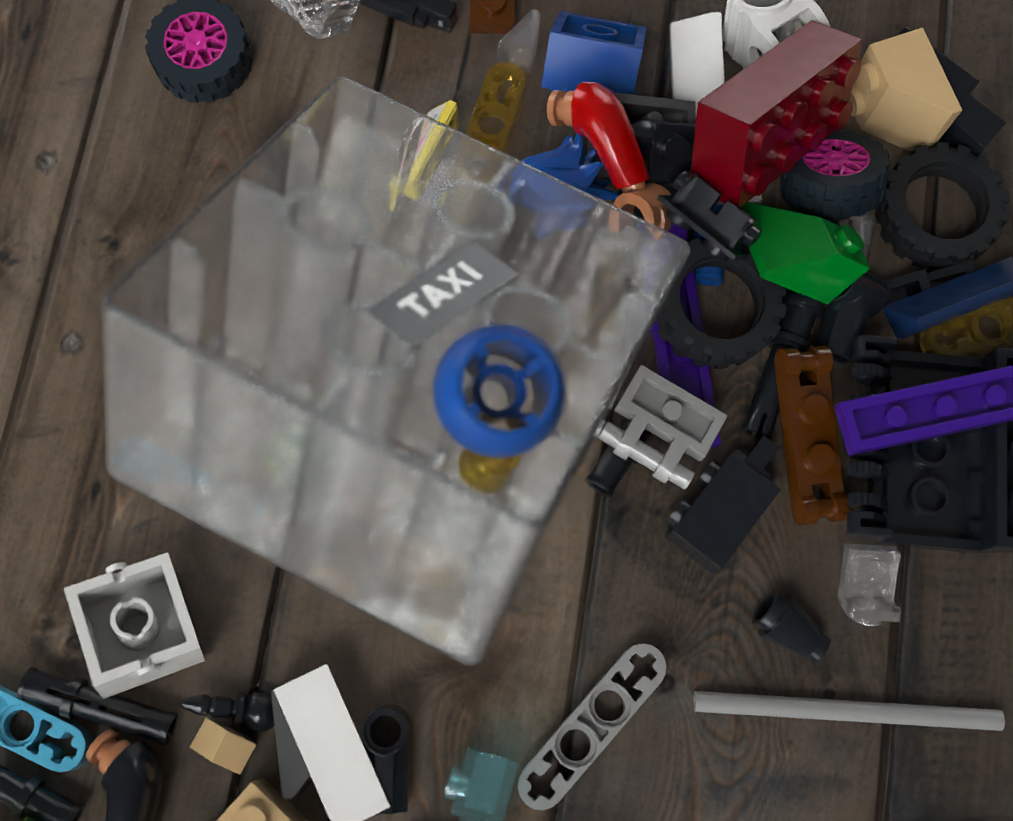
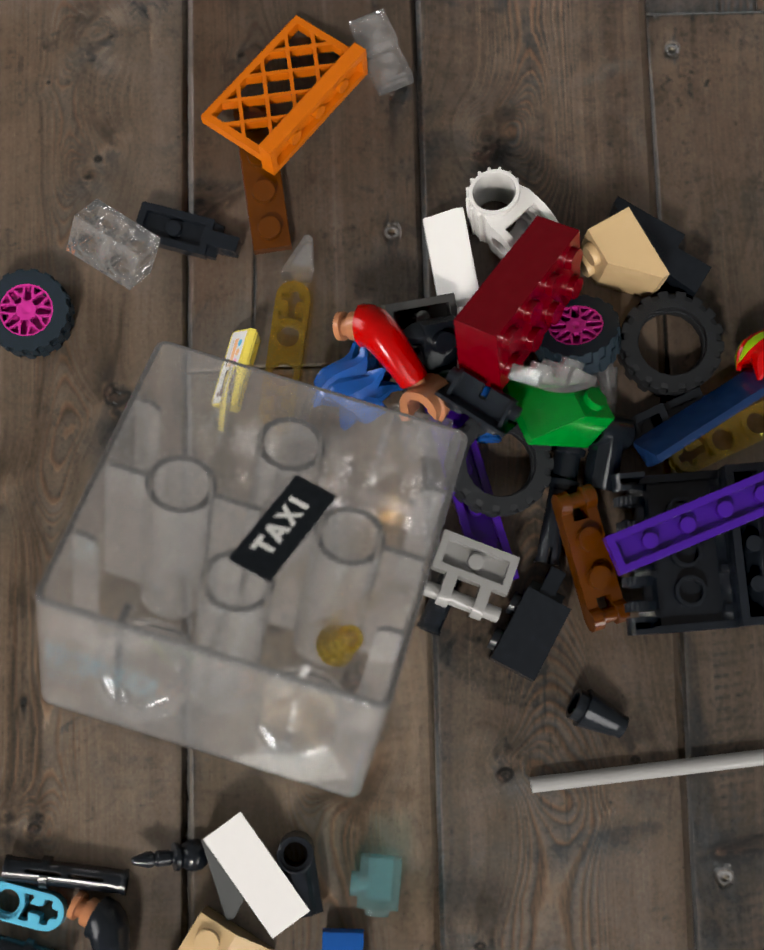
camera: 10 degrees left, 5 degrees up
(133, 625) = (83, 808): white brick -> none
(223, 745) = (171, 887): tan piece -> none
(465, 412) = (364, 578): blue wheel -> none
(592, 51) = (363, 263): blue slope -> none
(597, 730) = (450, 816): light grey beam -> none
(800, 196) = (554, 376): none -> clear slope
(869, 583) = (652, 669): clear bracket -> none

